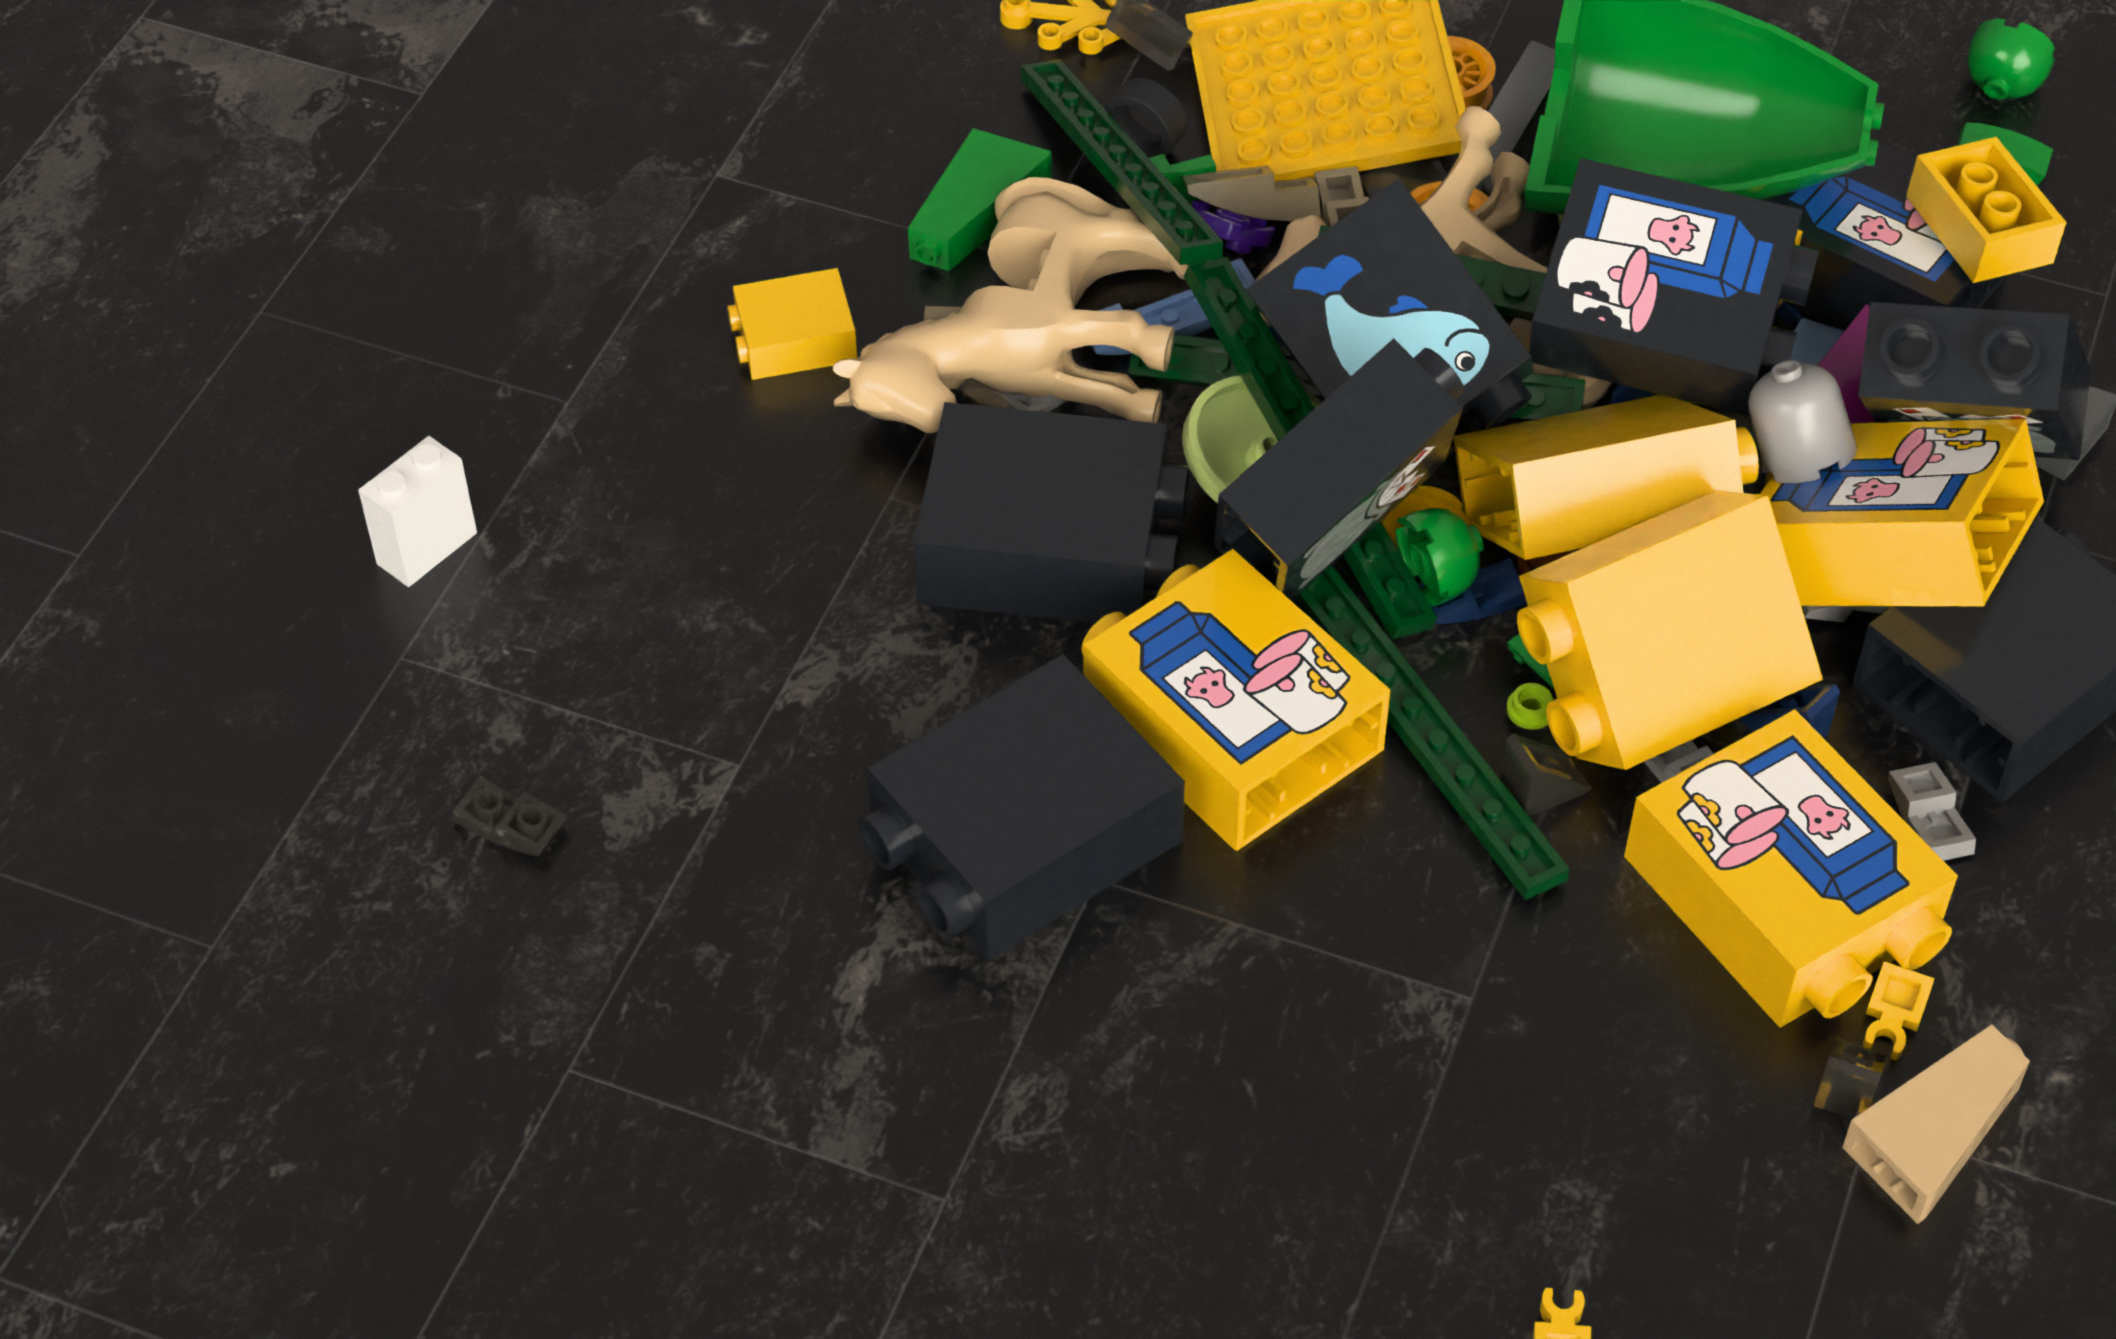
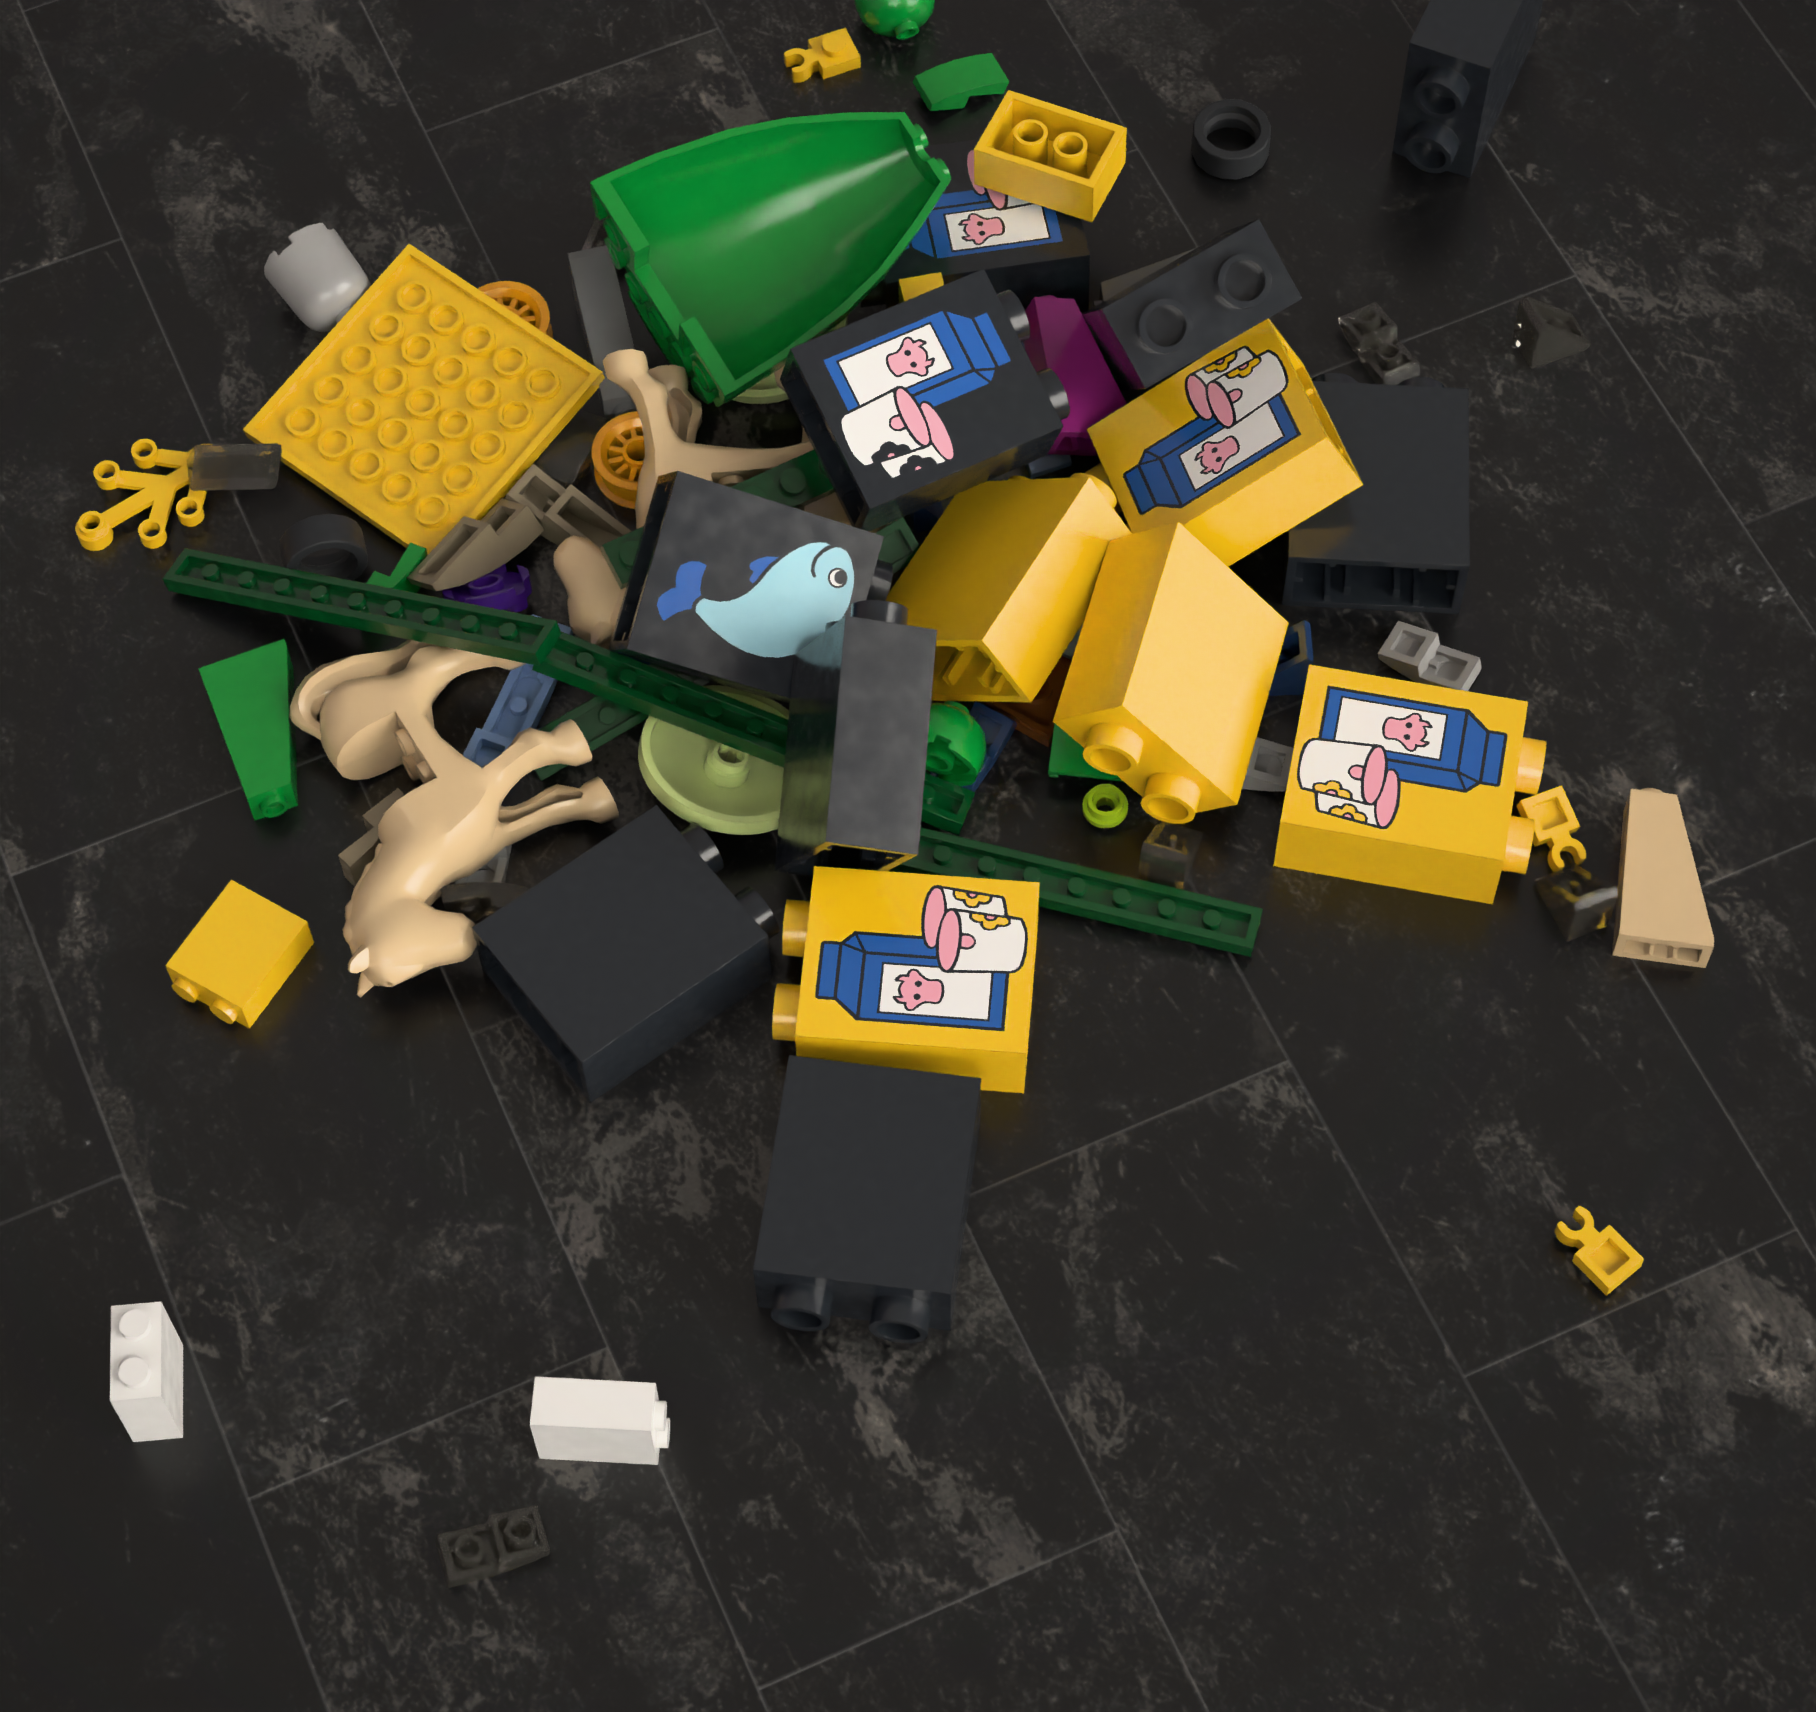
camera: 45 degrees left, 10 degrees up
(660, 788) = (598, 1420): none -> white brick
(1800, 422) = (1111, 438): light grey cylinder -> none
(1914, 71) = (828, 54): none -> yellow plate

